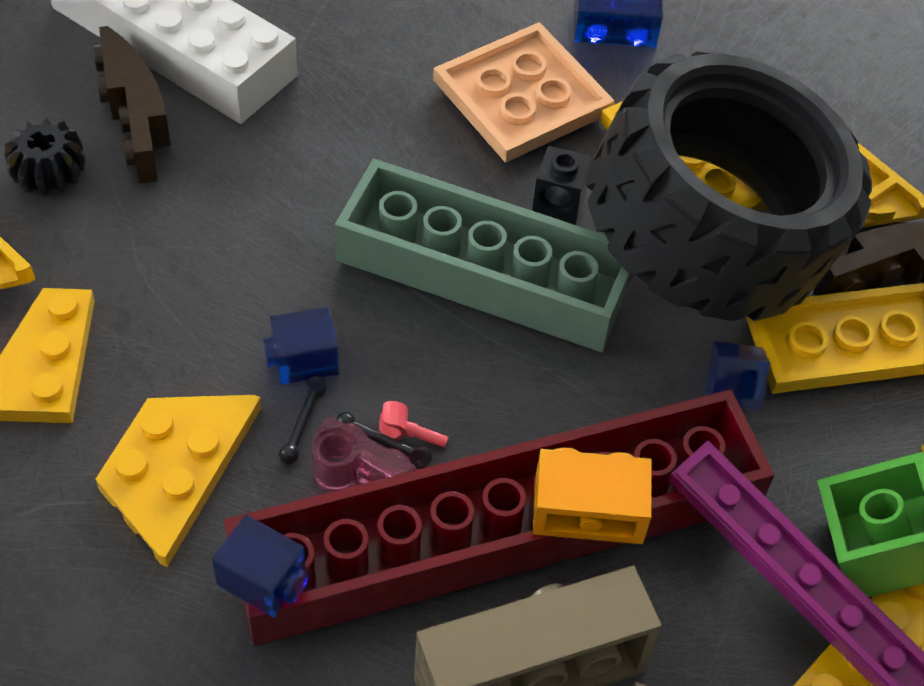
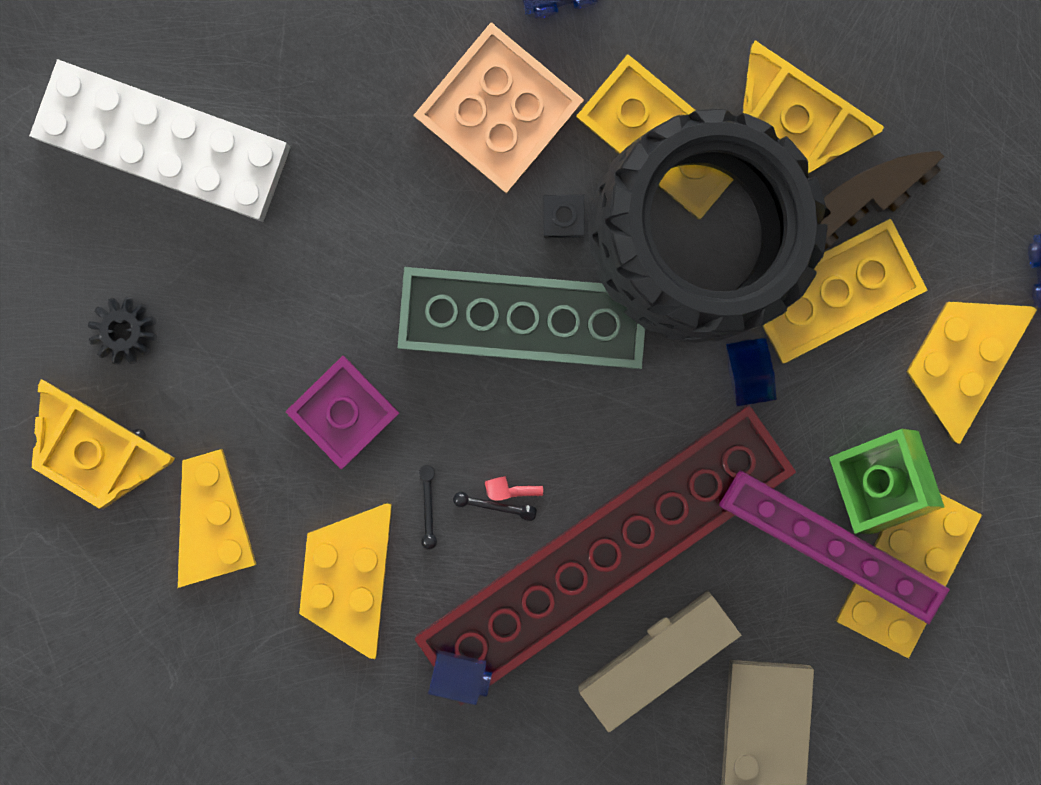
camera: 10 degrees left, 35 degrees up
(133, 100) = (159, 230): dark brown slope -> none
(241, 293) = (342, 412): none -> magenta plate
(302, 345) = (405, 450): clear blue brick -> none
(363, 457) = (508, 538): clear pink plate -> none
(592, 496) = (669, 546): light orange brick -> none

